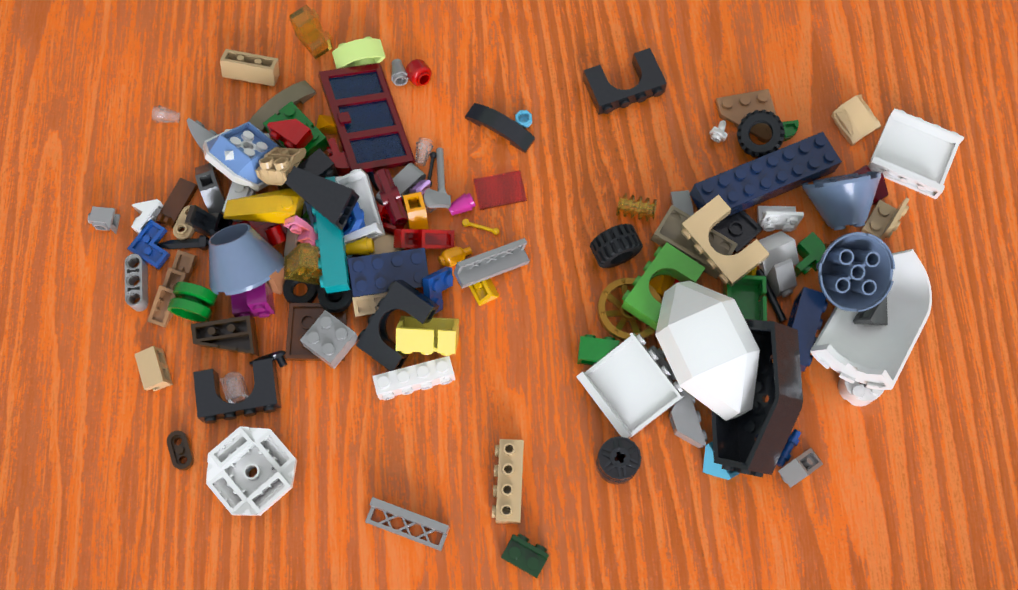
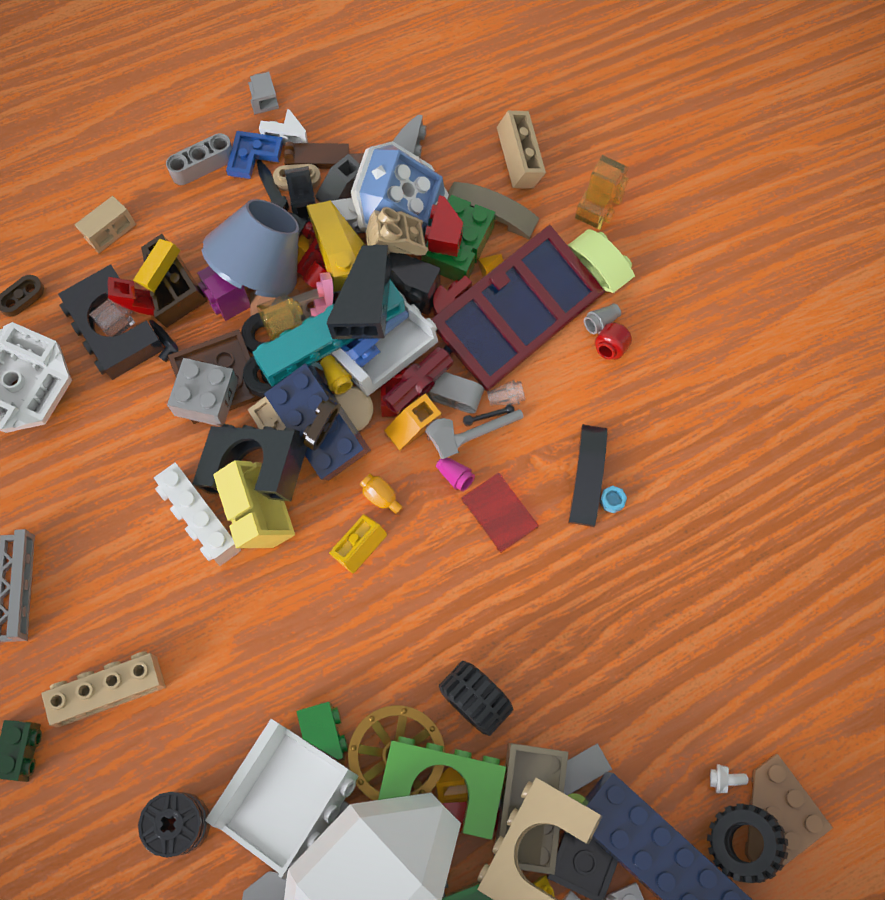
camera: 65 degrees right, 0 degrees up
(164, 115) = (418, 90): clear cone -> none
(180, 272) = (204, 199): medium nougat slope -> none
(192, 302) = (192, 223): green wheel -> none
(214, 335) = (157, 265): none -> yellow slope
(229, 365) = (124, 294): none -> red slope
(401, 269) = (326, 415): none -> dark brown plate
(421, 187) = (452, 411): lavender slope -> none
(423, 238) = (384, 446): red slope -> none
(436, 283) = (324, 484): blue plate -> none
(466, 223) = (435, 490): yellow hinge -> none
(491, 263) = (384, 544): light grey fence -> none
(608, 98) = (750, 648): black arch -> none
(636, 207) = (551, 703): clear yellow piece -> none
(790, 129) = (784, 885): green tile -> none

